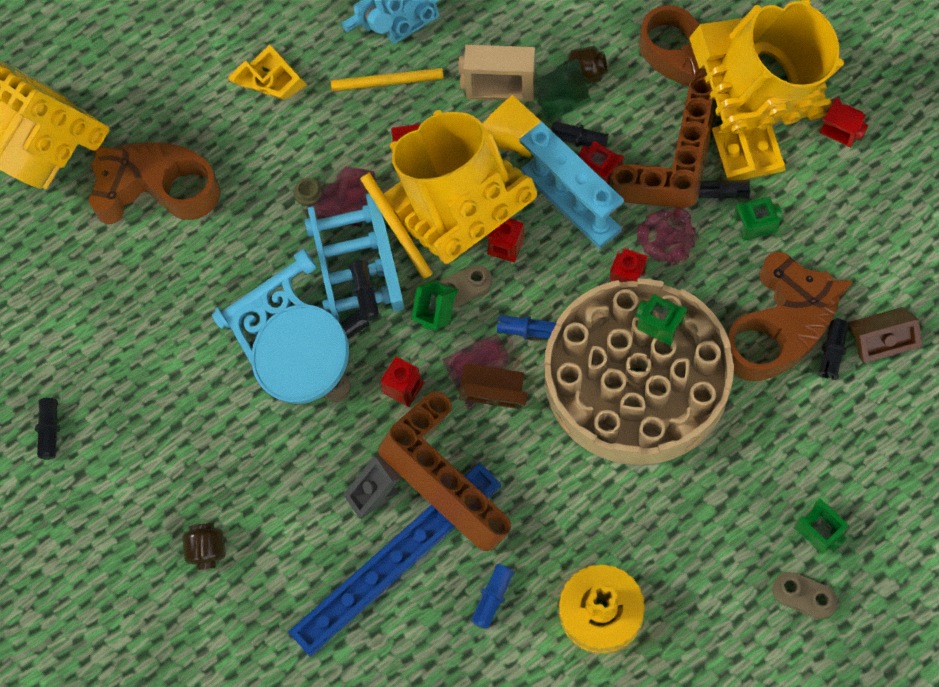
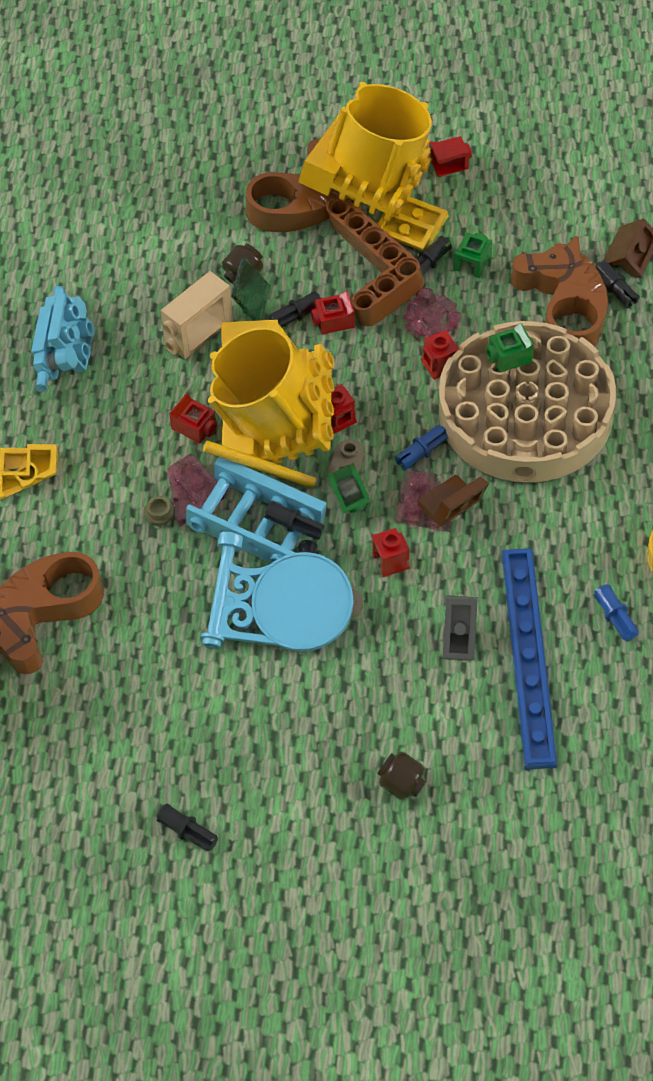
camera: 55 degrees left, 10 degrees down
(387, 79) = (112, 397): yellow bar -> none
(436, 478) = (496, 574): dark orange beam -> none
(571, 185) = (352, 316): medium azure fence -> none

